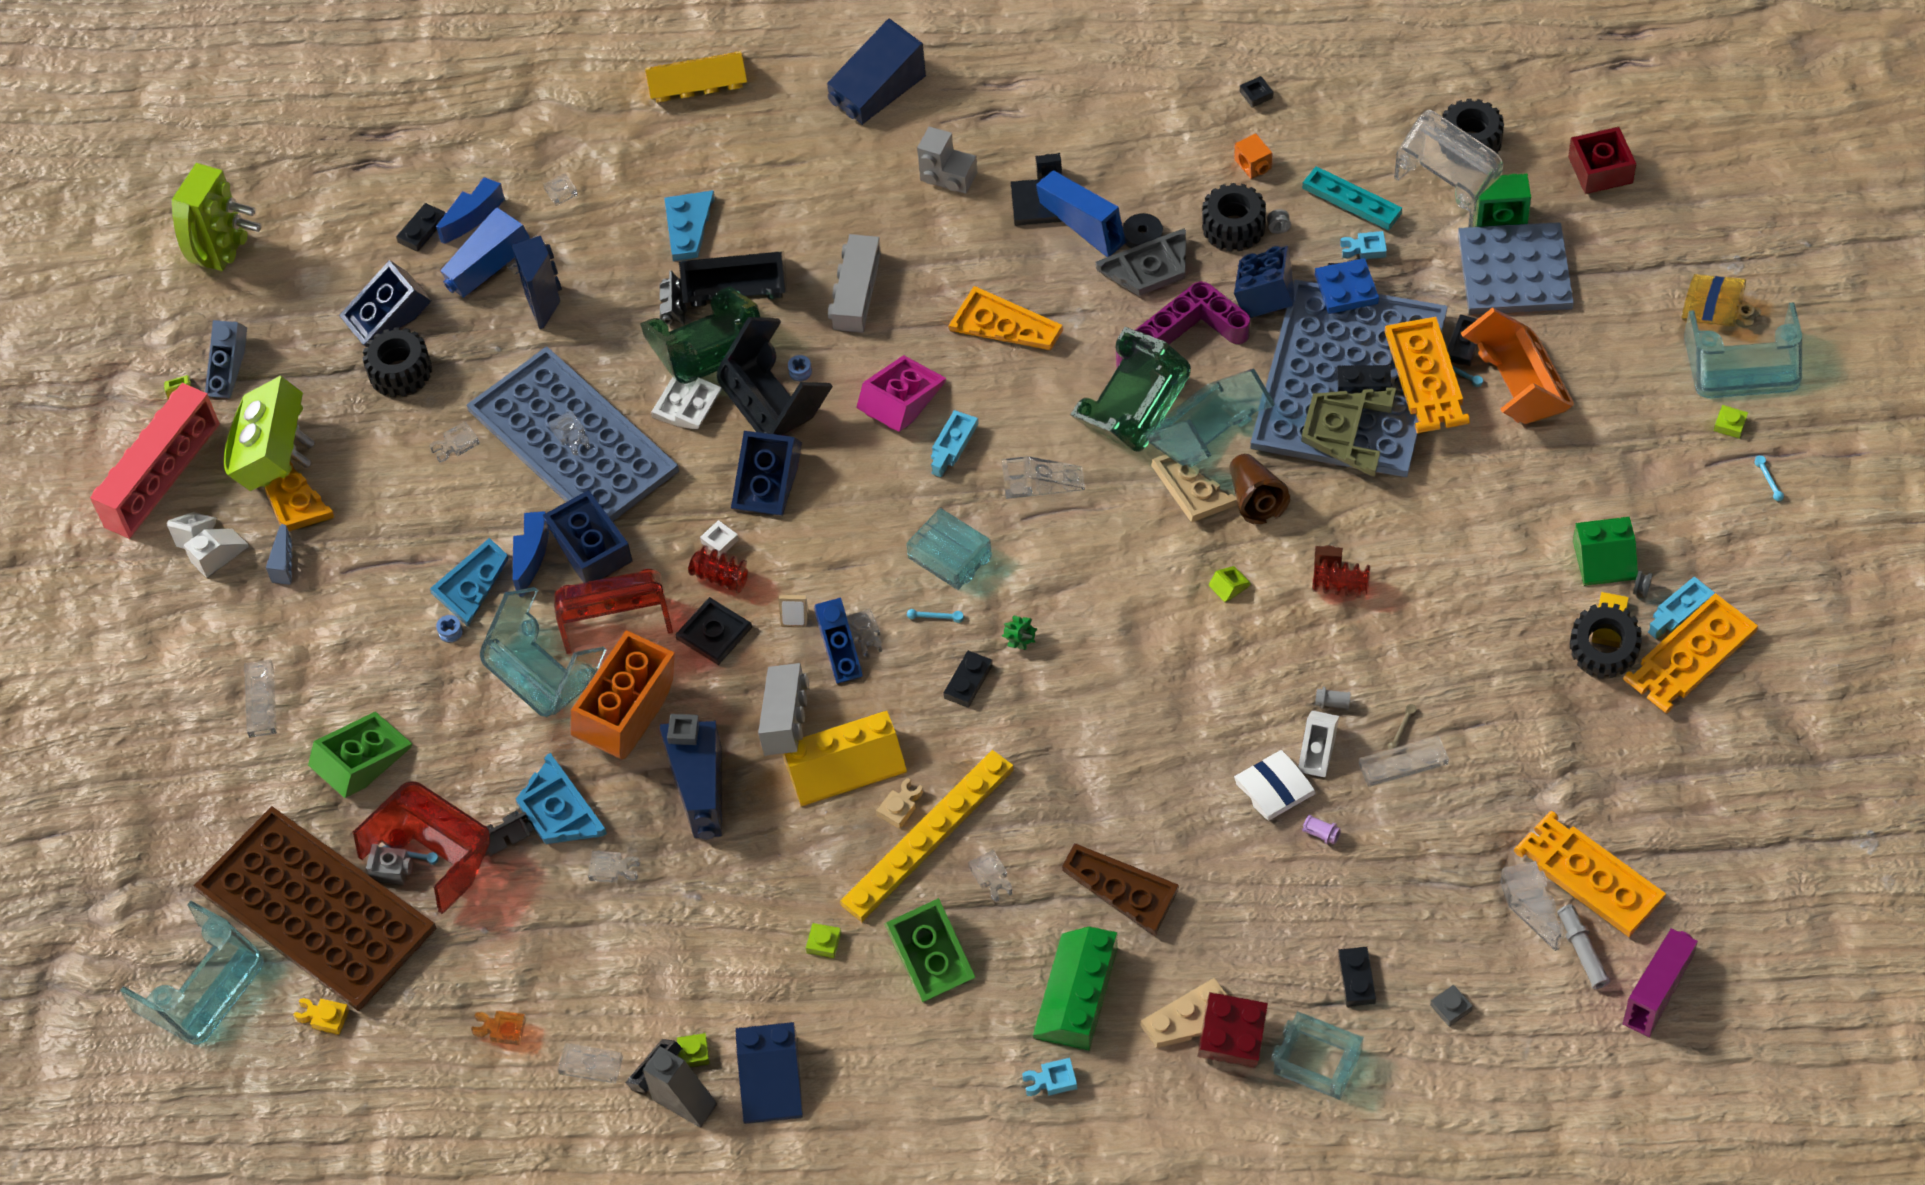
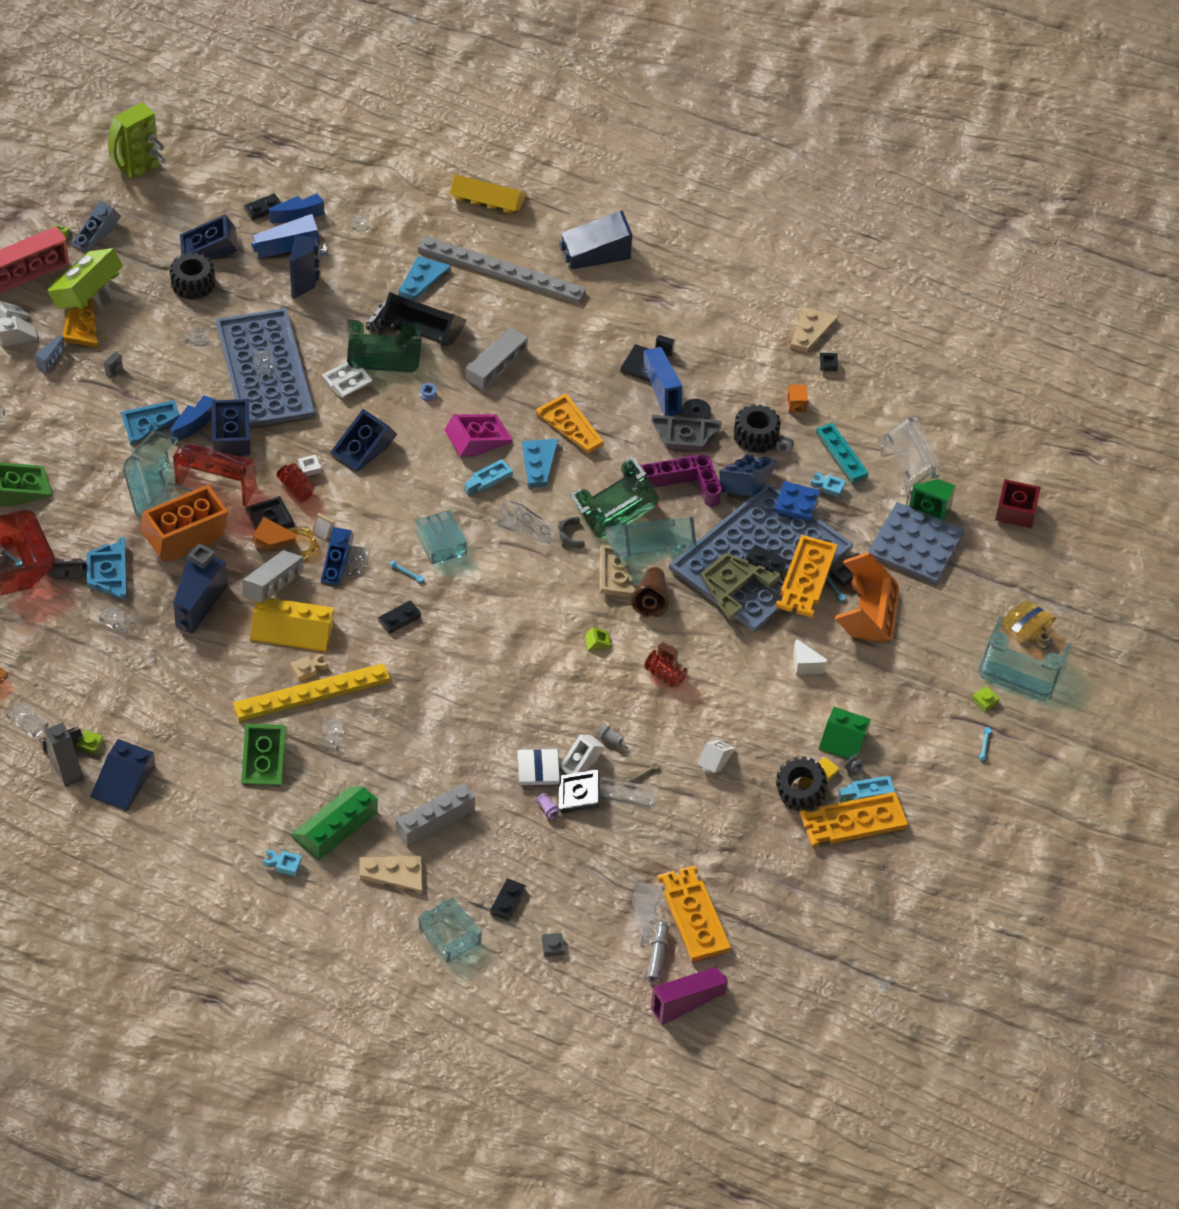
camera: 20 degrees right, 5 degrees down
(375, 530) = (113, 364): none -> dark grey plate
(450, 635) = (121, 437): medium blue bush -> none
(738, 654) = (272, 536): none -> orange slope
(756, 391) = (393, 388): black windscreen -> none
(778, 165) = (501, 269): none -> light grey plate
(778, 627) = (306, 531): none -> clear yellow cap
(823, 940) = (208, 720): lime plate -> none
(942, 164) = (599, 314): light grey brick -> none
(996, 389) = (538, 460): none -> dark azure wing
(1019, 632) = (452, 602): green gear -> none
(1098, 474) = (564, 539): none -> dark grey cap
(1126, 888) = (405, 779): reddish brown wing -> none
(1196, 915) = (435, 815): none -> light grey brick
(1204, 60) = (811, 328): none -> tan wing
(1232, 1030) = (407, 888): dark red brick -> none
(1347, 790) = (579, 791): none -> tile
(1476, 659) = (715, 756): none -> white slope
(1478, 118) = (957, 443): black tyre -> none
(1495, 480) = (807, 660): none -> white slope

